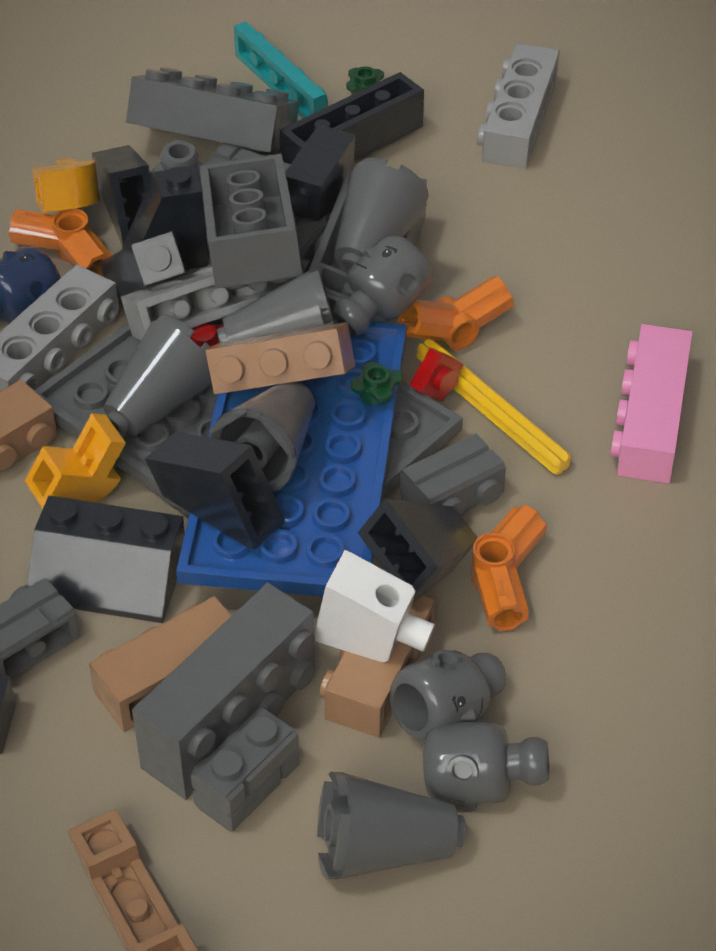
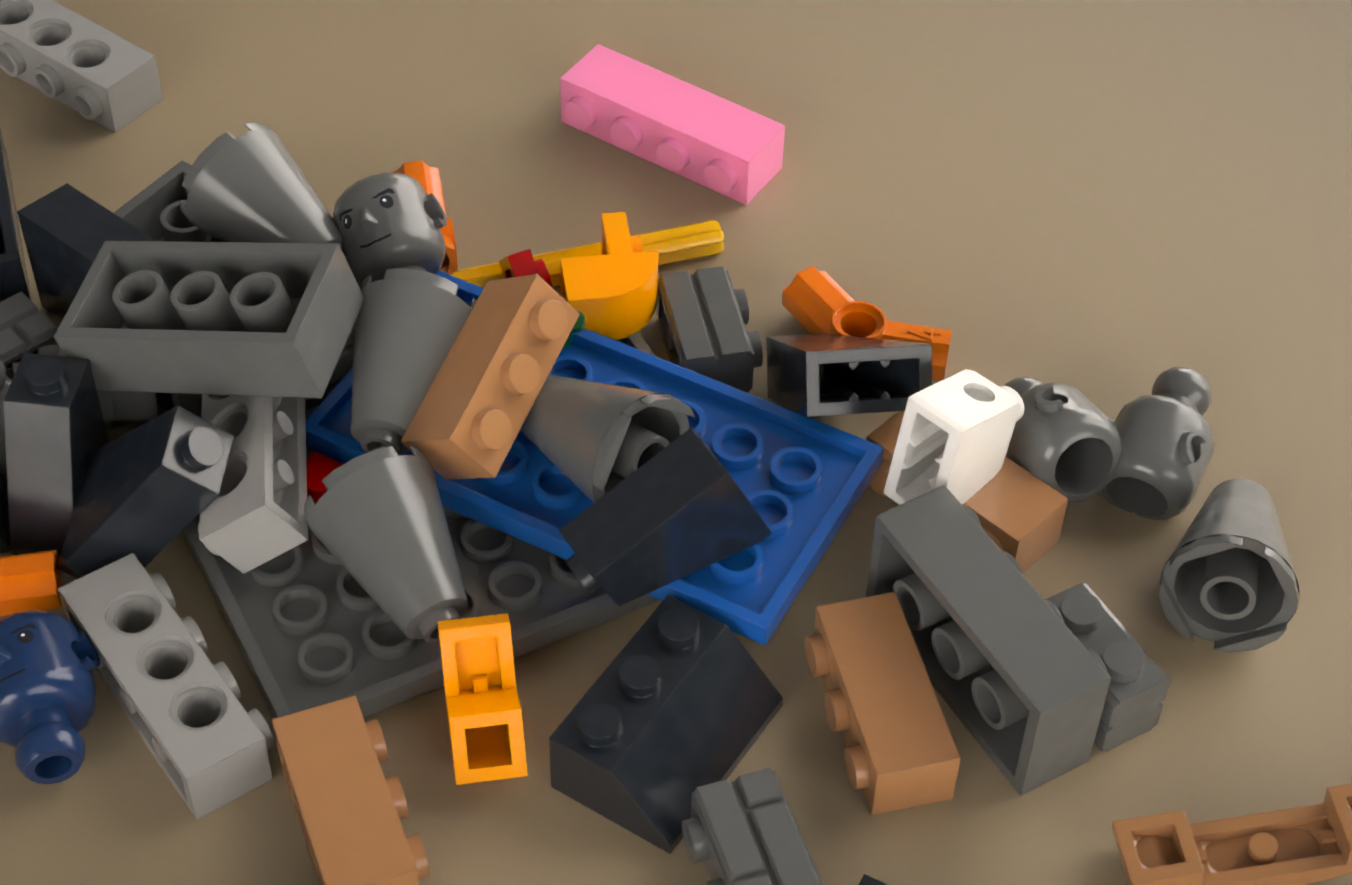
camera: 70 degrees left, 0 degrees up
(442, 415) = (616, 287): none -> light orange brick

